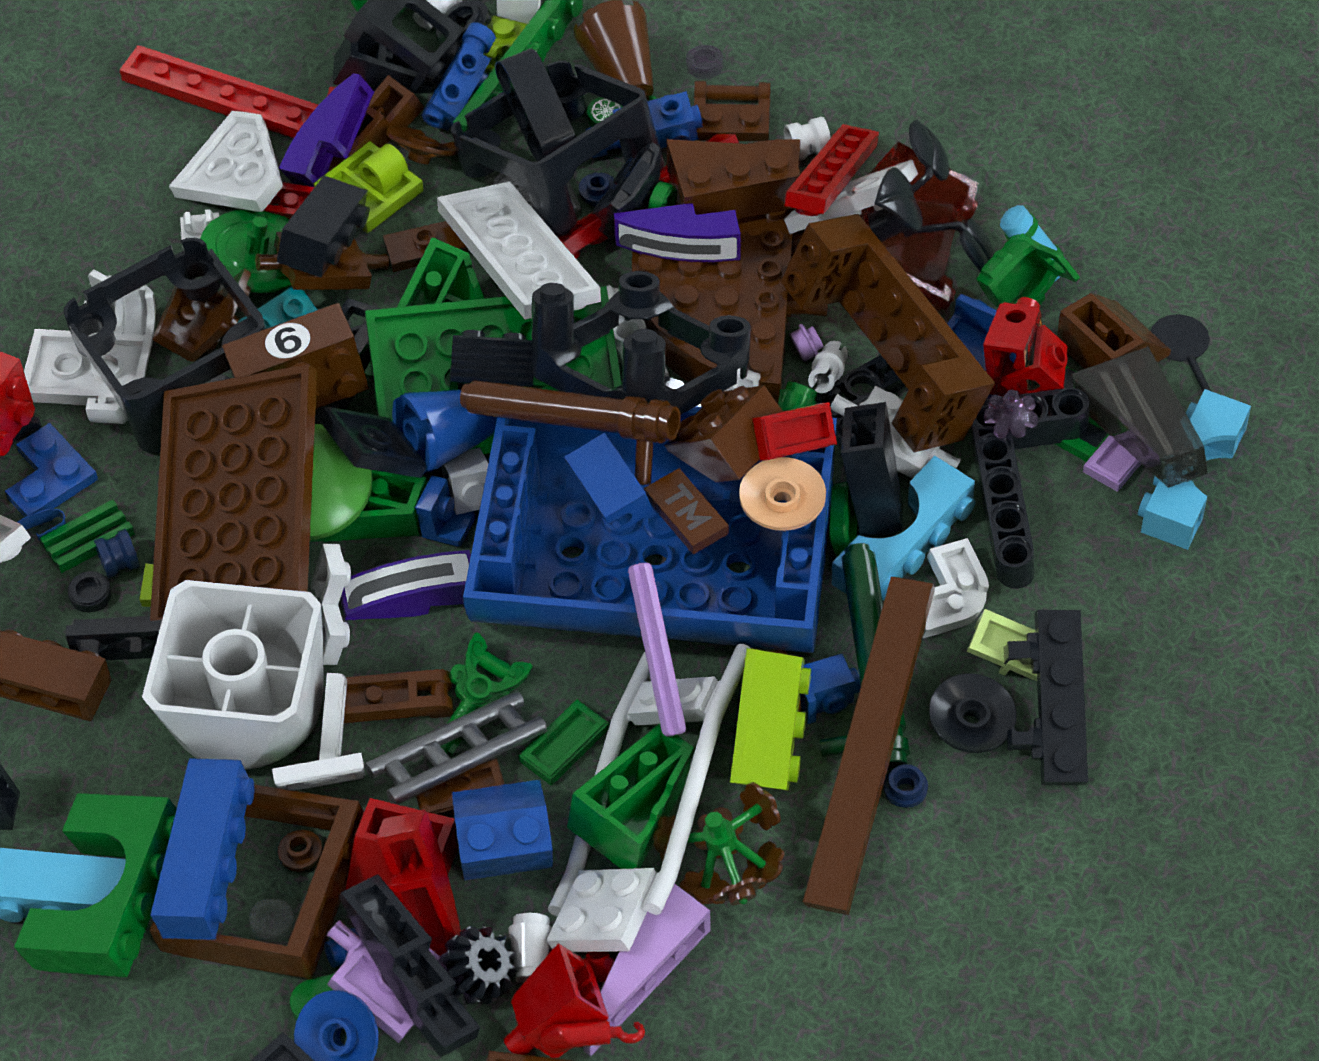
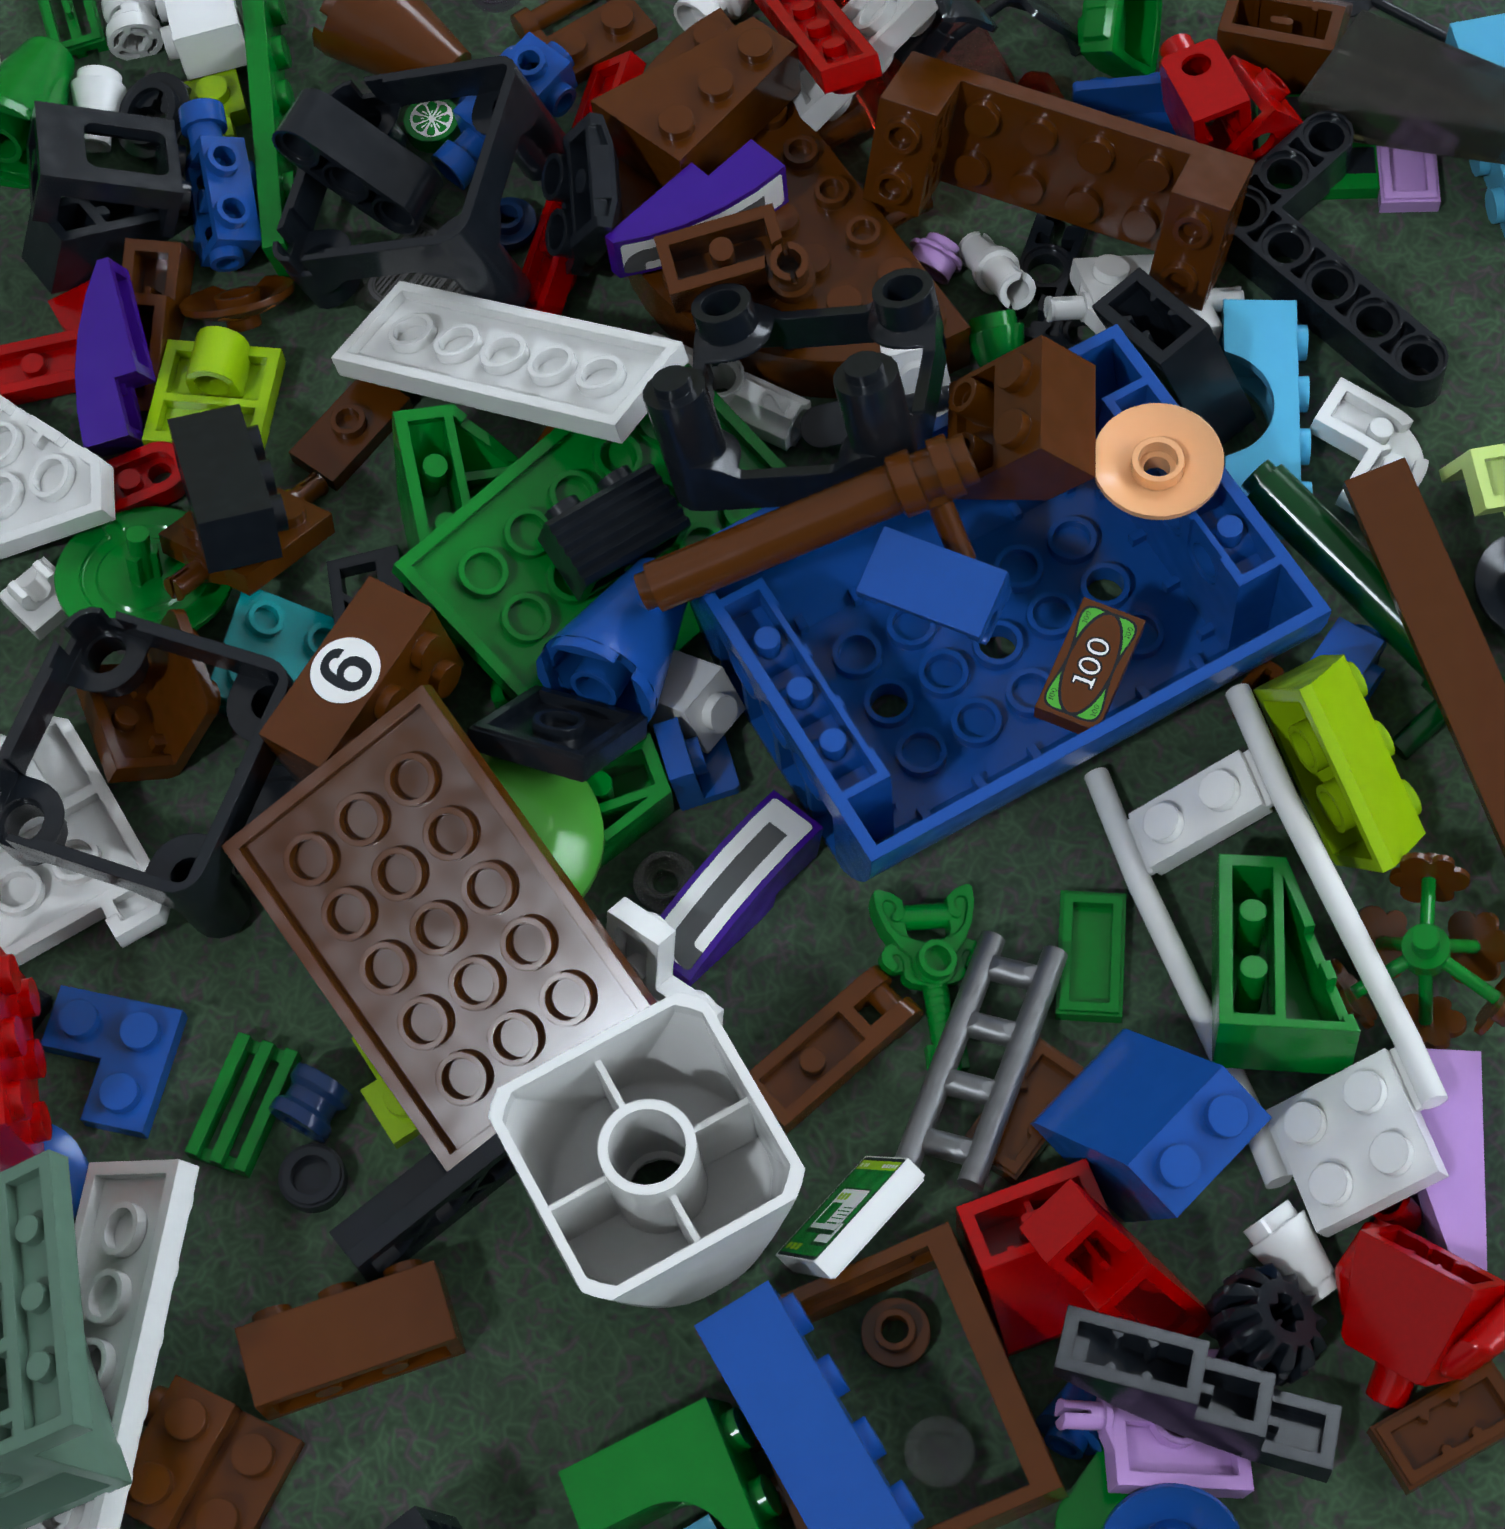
camera: 30 degrees left, 10 degrees up
(42, 517) = (187, 1099): blue piece -> none
(333, 716) = (805, 1132): white tile -> none
(657, 649) = (1166, 763): lavender axle -> none
(663, 195) = (638, 180): green tile -> none
(674, 575) = (1089, 667): none -> reddish brown tile
(677, 262) = (738, 250): none -> reddish brown hinge
(686, 511) = (1055, 560): reddish brown tile -> none
(794, 431) = (1107, 371): red tile -> none
(1011, 414) = (1275, 191): clear purple plant -> none

